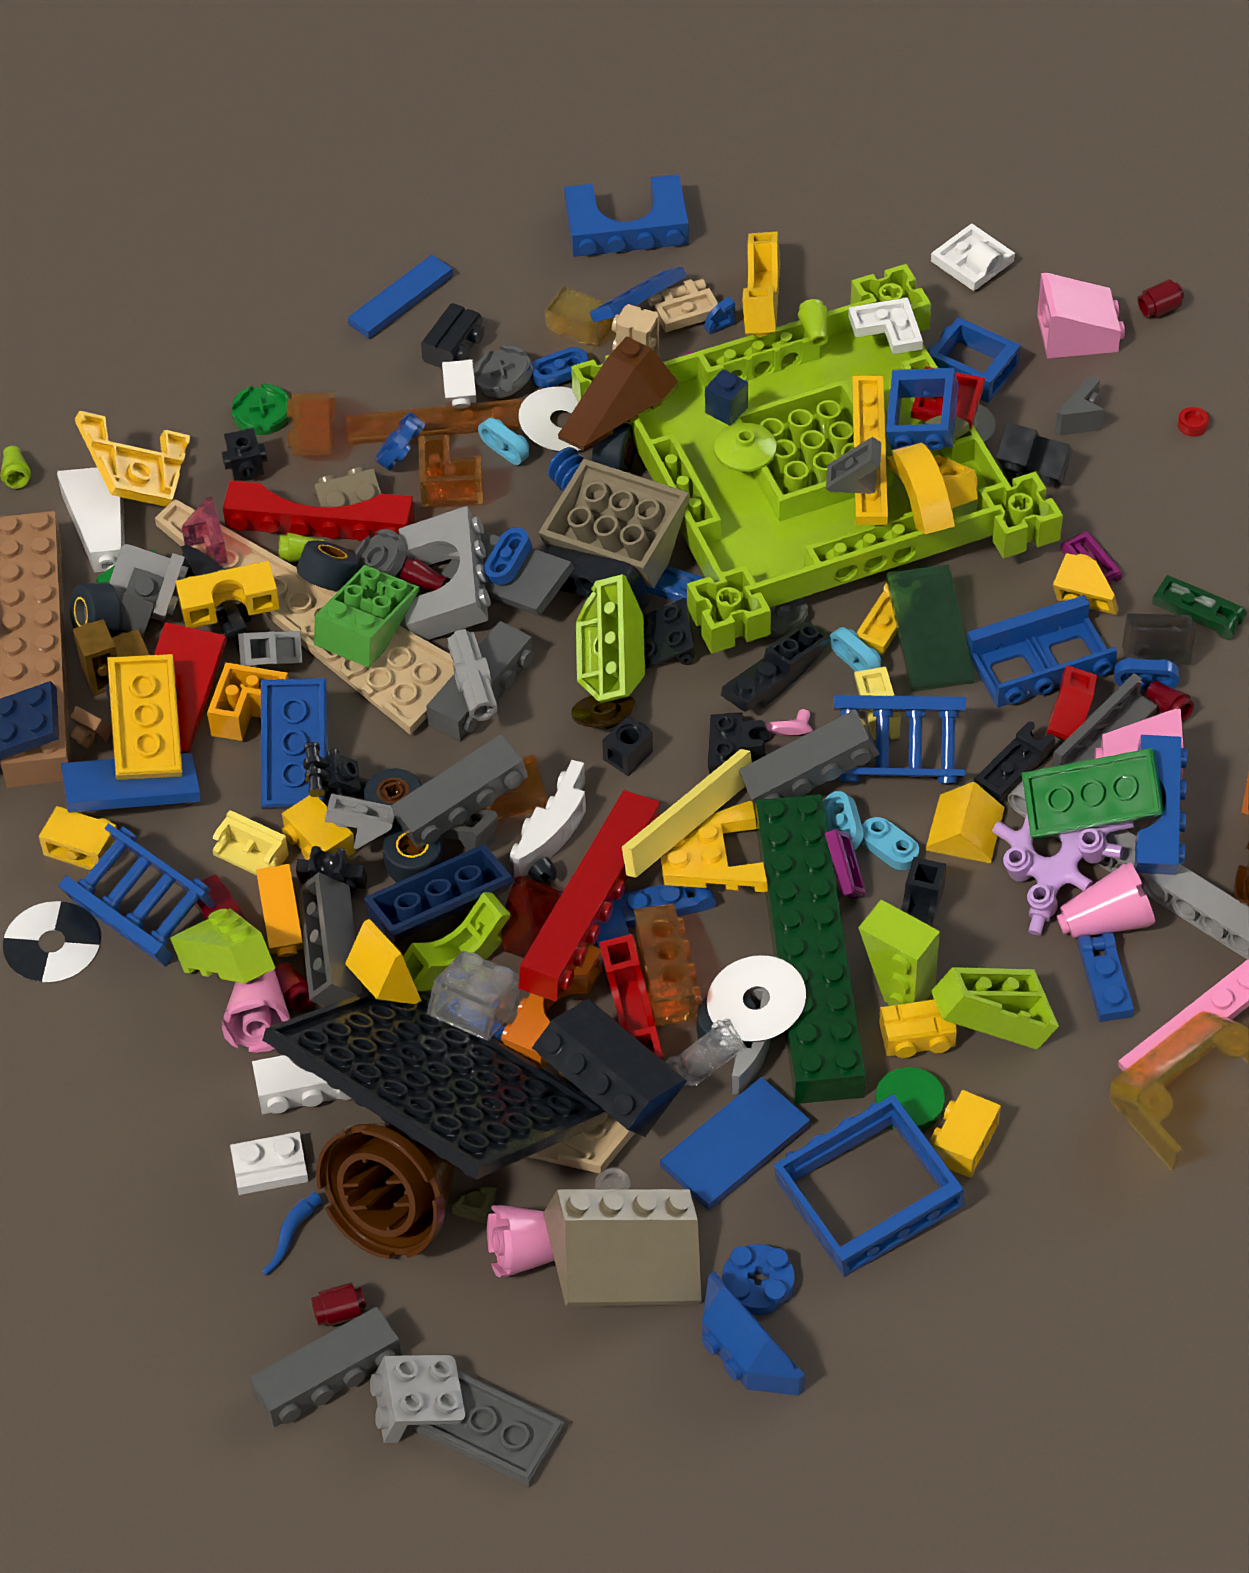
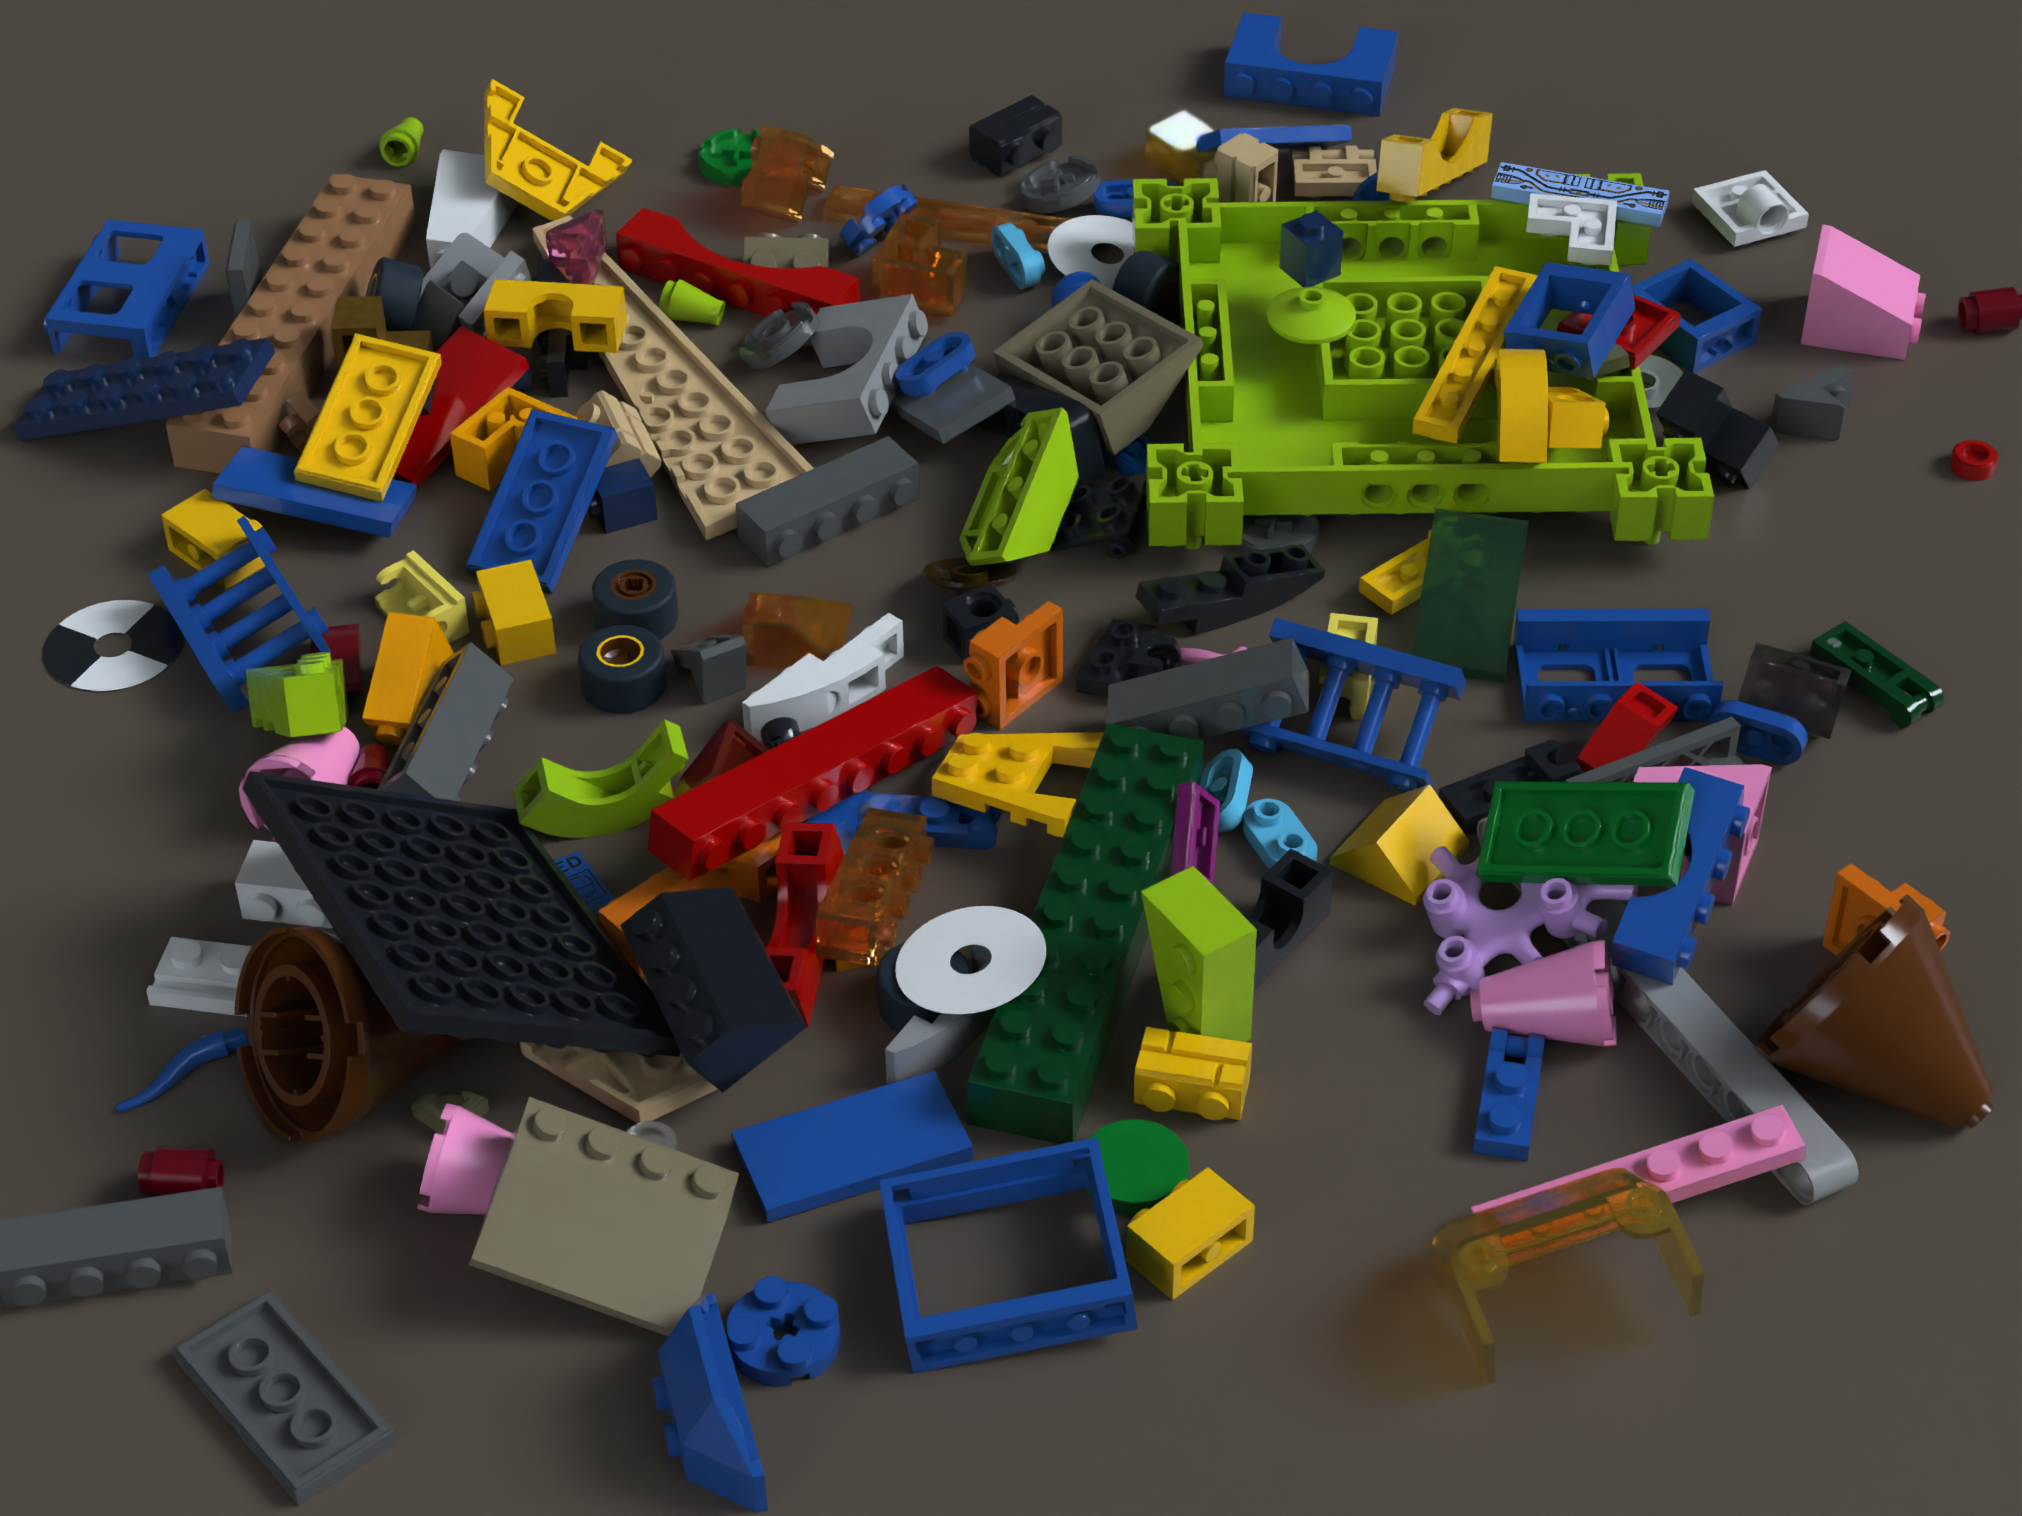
camera: 20 degrees right, 10 degrees down
(246, 460) = (681, 189): black brick -> none
(270, 648) = (568, 386): light grey brick -> none
(308, 663) = (632, 439): none -> tan brick
(326, 565) = (707, 325): black wheel -> none
(331, 774) = (560, 546): black piece -> none
(333, 866) = (505, 649): black plate -> none
(344, 719) = (624, 497): none -> dark blue brick
(363, 615) = (713, 384): bright green slope -> none
(369, 817) = (573, 598): light grey slope -> none
(381, 966) = (480, 776): yellow slope -> none
(400, 296) = (979, 84): blue tile -> none
(416, 1393) = (211, 1319): light grey bracket -> none
(421, 575) = (816, 362): dark red cone -> none
(436, 893) = (610, 717): dark blue slope -> none
(459, 383) = (990, 175): white slope -> none
(460, 791) = (707, 598): dark grey brick -> none
(472, 675) = (809, 479): light grey piece -> none
(474, 995) = (588, 846): clear brick -> none
(623, 388) = (1181, 207): reddish brown wedge -> none
(672, 770) = (1016, 663): none -> orange plate
(685, 815) = (996, 713): light yellow tile -> none
(708, 1053) = (866, 1014): clear hinge -> none
(814, 321) = (1477, 197): lime cone -> none
(841, 296) = (1634, 202): none -> light blue tile
(853, 651) = (1347, 591): medium azure plate -> none
(856, 469) = (1436, 361): dark grey slope -> none
(997, 1003) = (1315, 1067): lime wedge -> none
(1073, 547) = (1752, 605): magenta tile -> none
(1083, 576) = (1721, 589): yellow slope -> none
(1169, 699) = (1787, 780): dark red cone -> none

